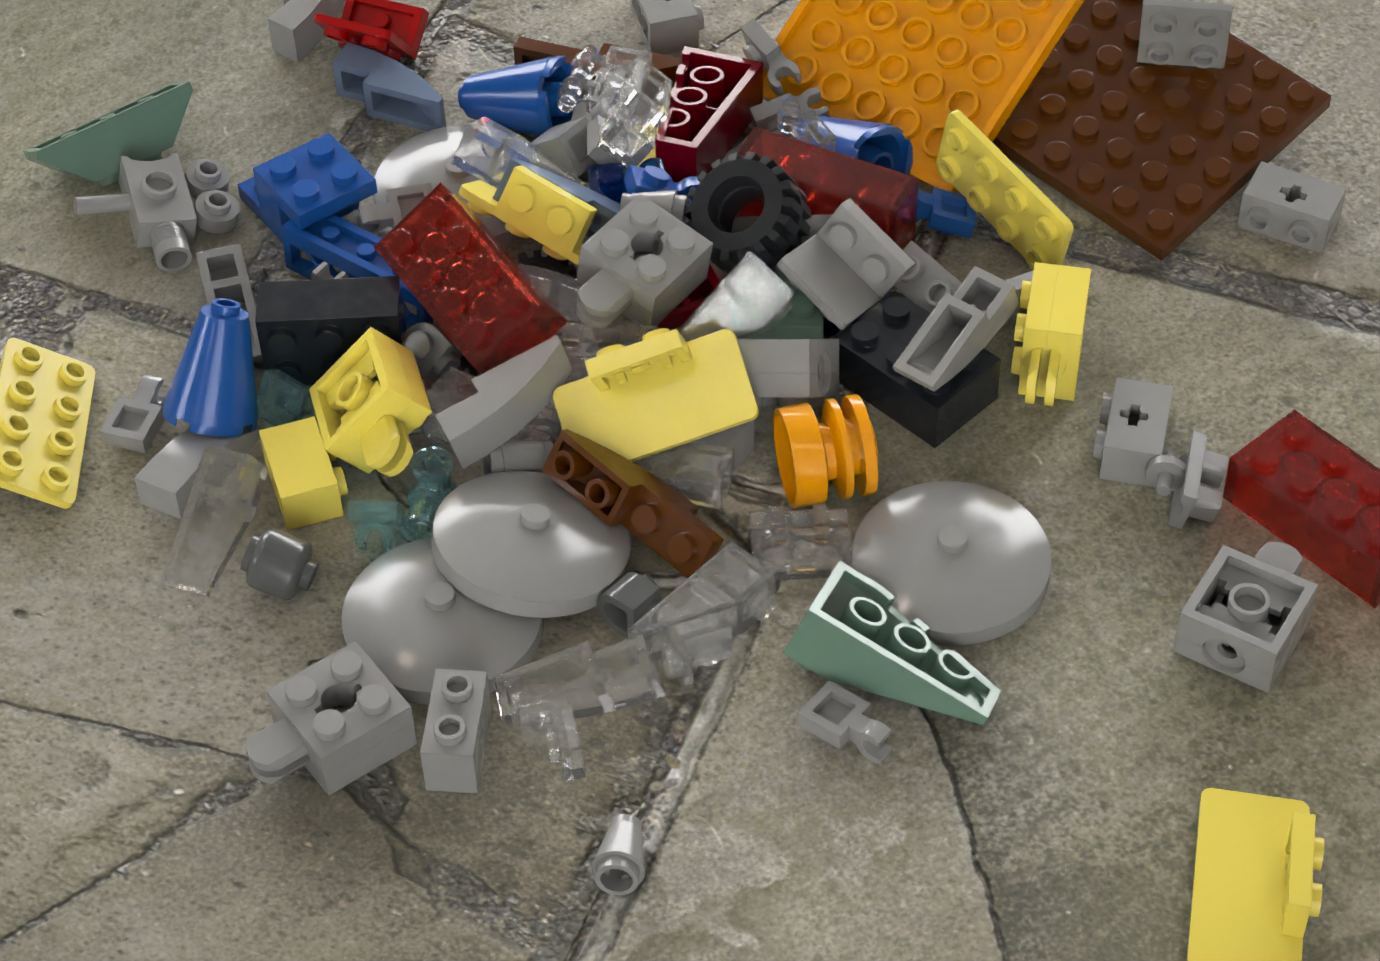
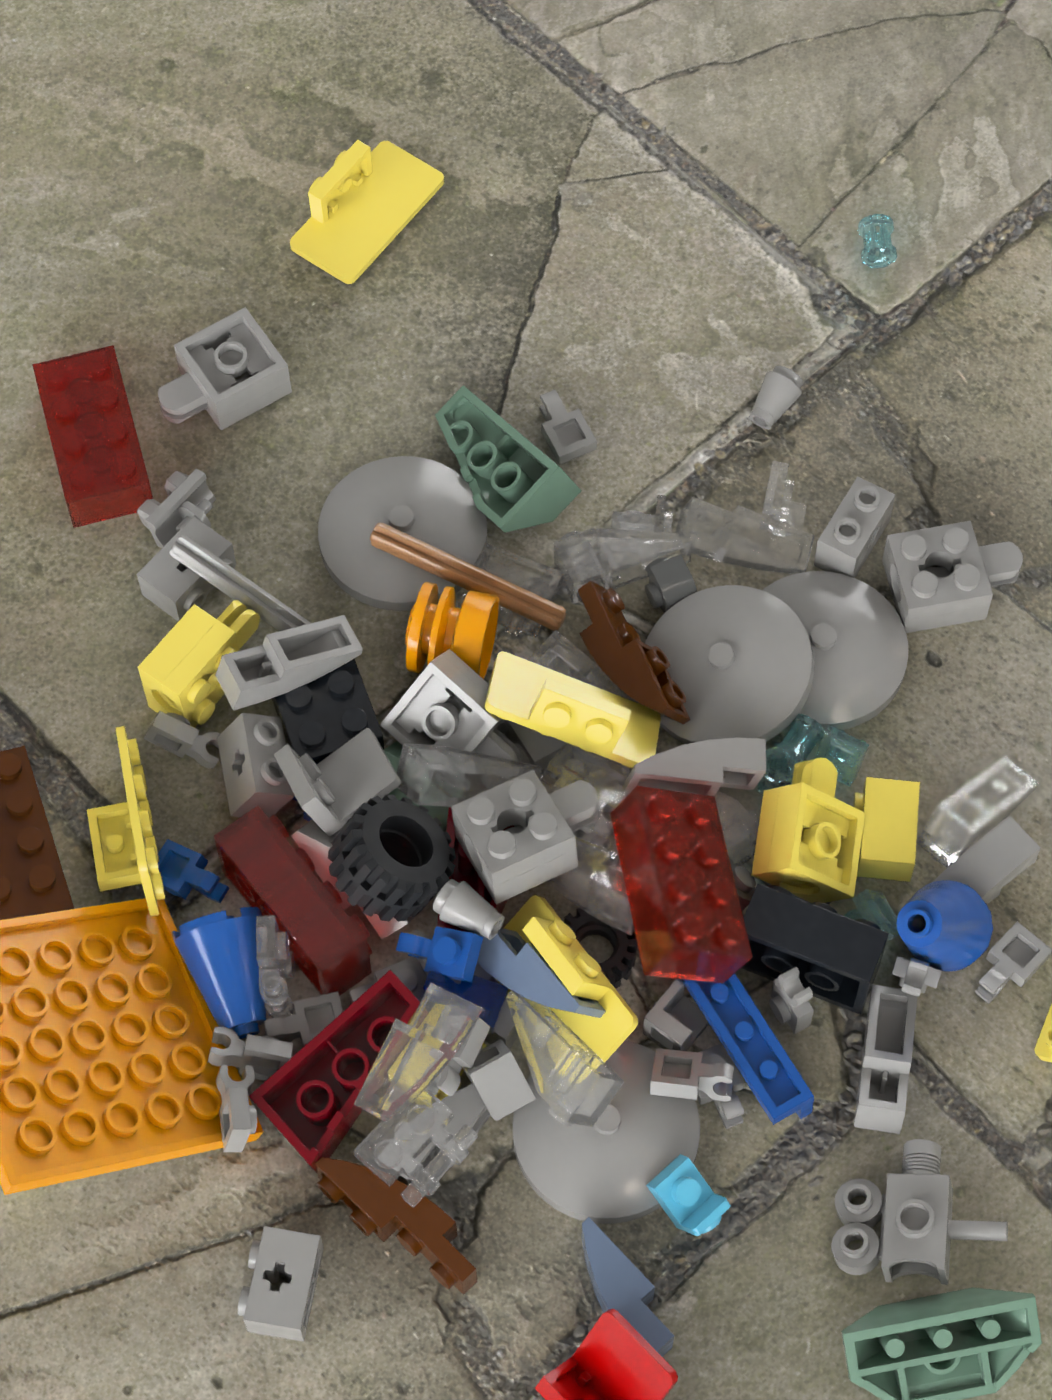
camera: 155 degrees left, 15 degrees up
(279, 564) = (938, 741): dark grey head -> none
(307, 185) = (765, 1164): blue bracket -> none
(371, 154) = (688, 1197): none -> medium azure bracket
(518, 96) = (500, 1199): blue cone -> none
(846, 508) = (467, 576): none -> medium nougat axle
(1058, 415) = (235, 584): none -> light grey axle

